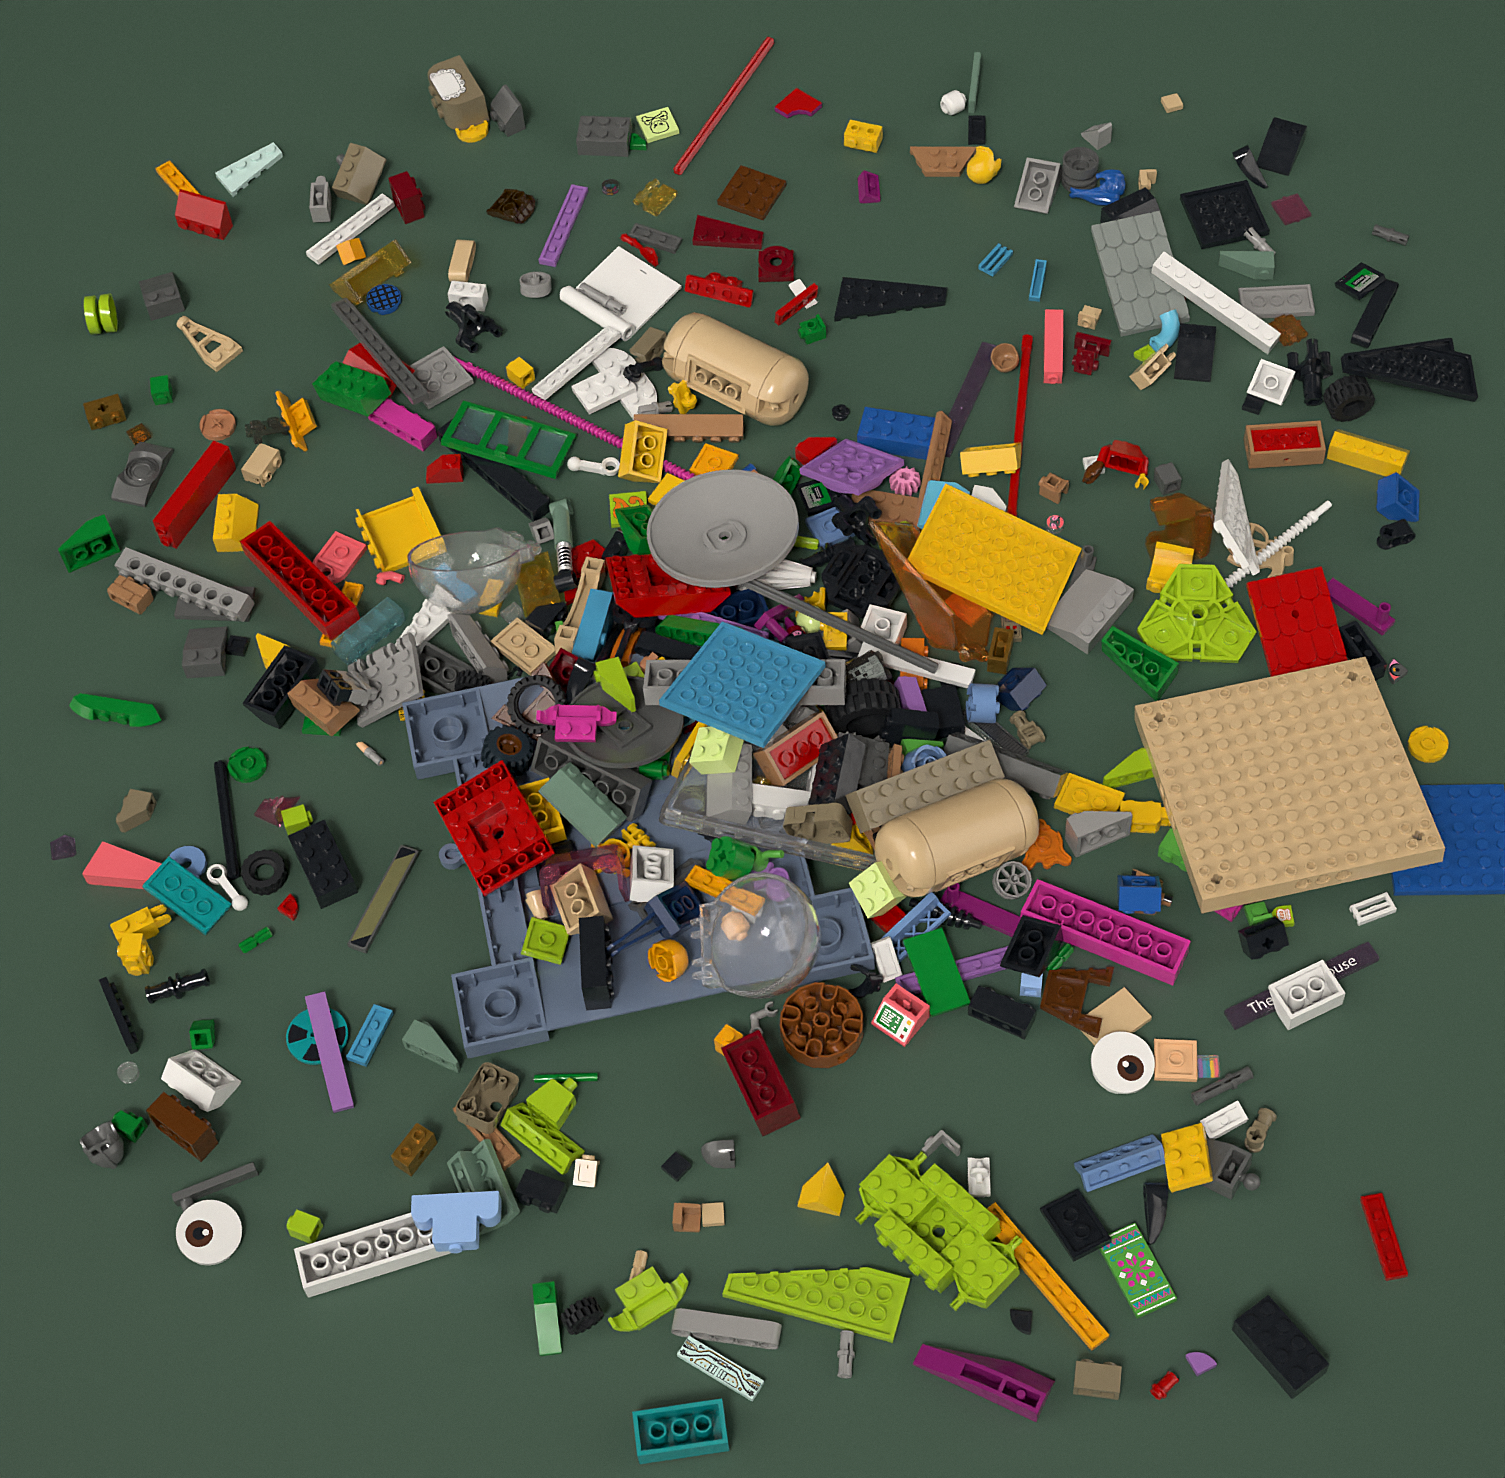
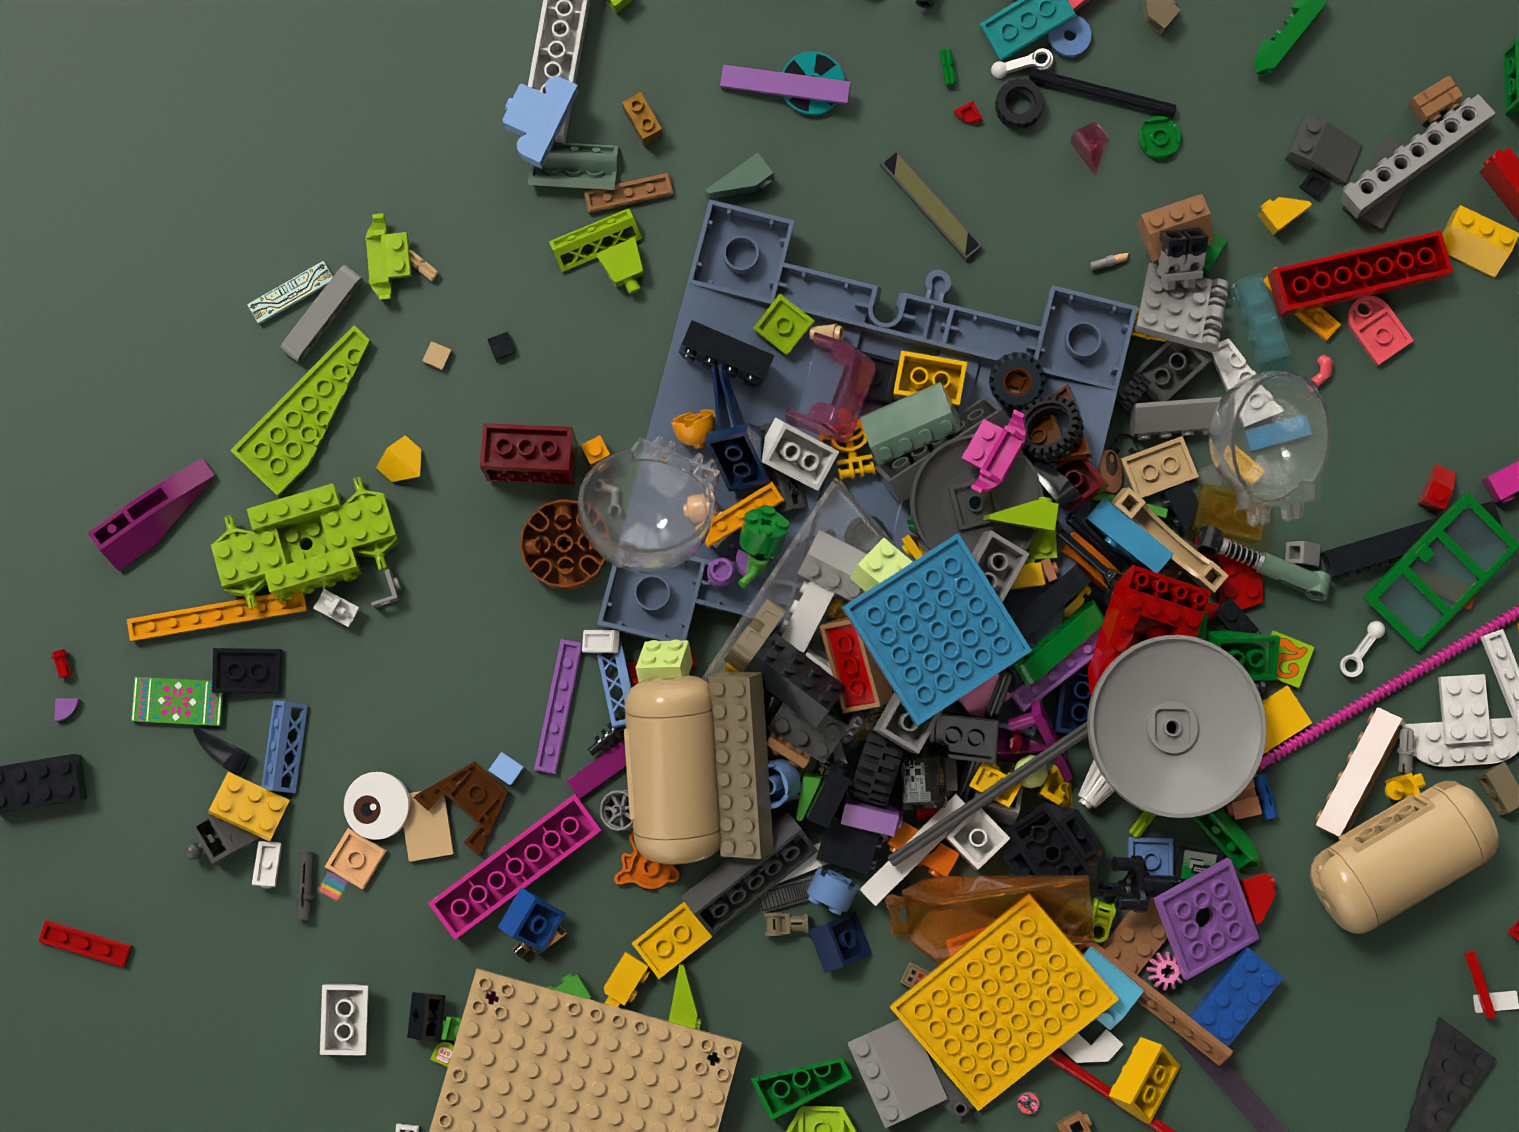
camera: 110 degrees right, 25 degrees up
(269, 696) = (1232, 203): black slope -> none
(296, 818) = (1063, 157): lime brick -> none
(322, 864) = (997, 160): black brick -> none
(370, 1035) = (785, 130): dark azure plate -> none
(397, 530) = (1377, 406): yellow panel -> none
(479, 811) = (949, 308): red slope -> none
(487, 1086) = (662, 200): dark tan axle -> none
(541, 1191) = (539, 213): black brick -> none
(547, 1318) = (417, 165): slope -> none
(577, 1077) = (645, 289): green bar -> none
(579, 896) = (806, 376): tan slope -> none
(582, 1315) = (397, 192): black tyre -> none
(586, 1171) = (539, 263): bracket -> none
(633, 372) = (1470, 762): black piece -> none
(642, 452) = (1346, 704): yellow slope -> none
(680, 1431) = (248, 228): teal brick -> none
(686, 1217) = (445, 329): medium nougat panel -> none
(713, 459) = (1300, 780): light orange tile -> none
(719, 1154) = (491, 390): dark grey brick -> none
(812, 330) = (1426, 986): green brick -> none
(825, 555) = (1109, 833): black piece -> none
(840, 416) = (1294, 953): black plate -> none
(845, 1354) = (242, 405): light grey pin -> none
(870, 984) = (589, 607): black helmet -> none
(901, 1015) = (535, 624): coral slope -> none
(936, 972) = (560, 681): green tile -> none
(1000, 650) = (891, 948): pearl gold brick -> none
(1002, 1012) = (489, 723): black brick -> none
(1021, 1320) = (189, 575): black tile -> none
(1032, 946) = (531, 782): black slope -> none
(1062, 955) = (516, 807): green piece -> none
(1095, 829) = (630, 915): light grey slope -> none
(1097, 1379) = (95, 606): dark tan brick -> none
(1259, 1130) = (242, 893): dark tan connector -> none
(1262, 1003) = (364, 1065): clear purple tile -> none

